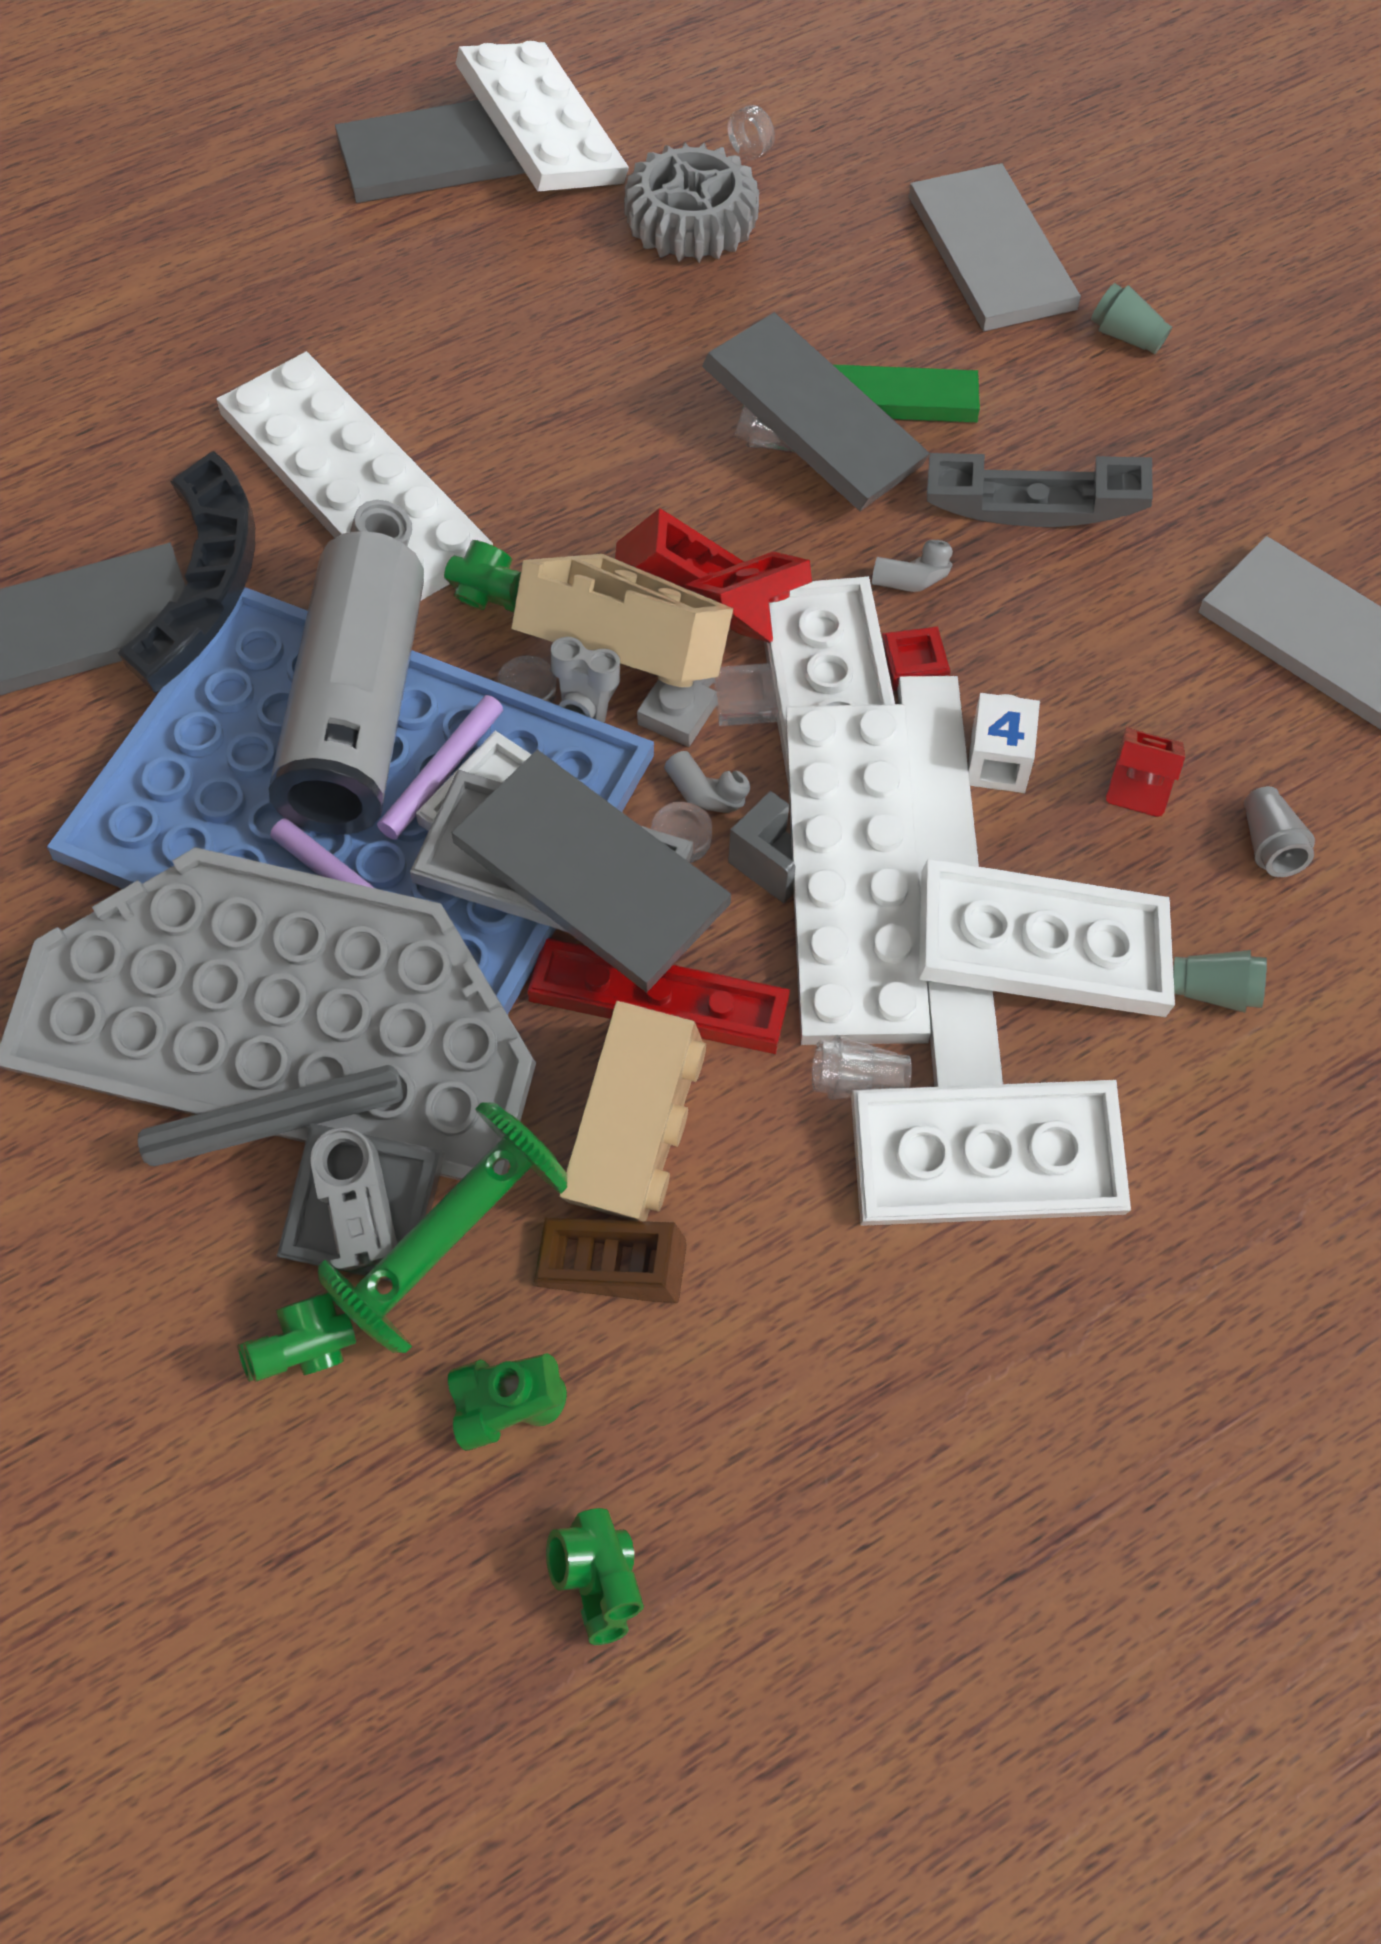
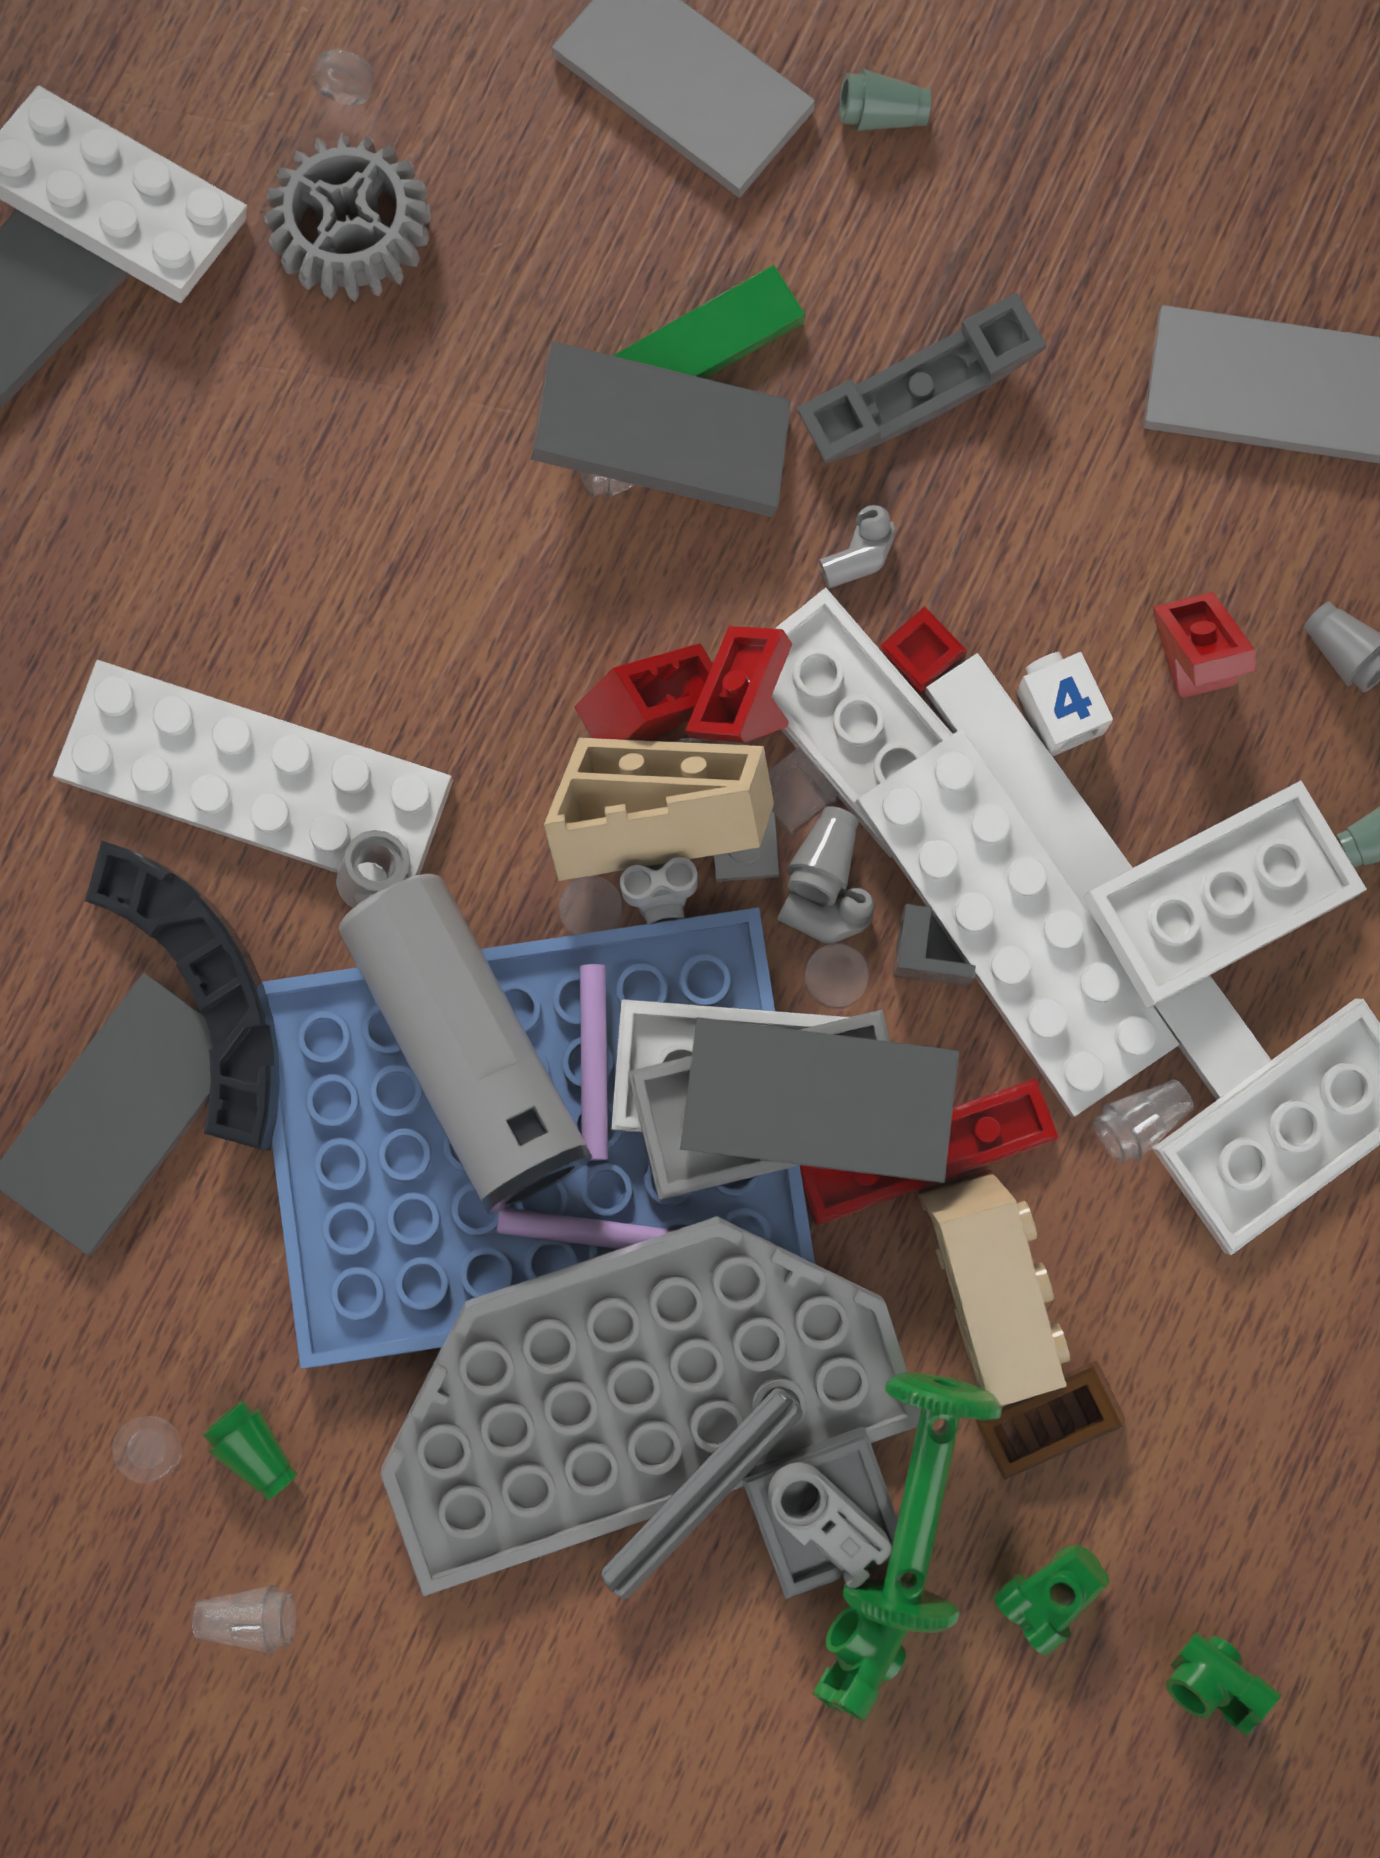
camera: 30 degrees left, 20 degrees up
(483, 577) = (474, 824): green plate -> none
(732, 742) = (824, 859): none -> light grey cone

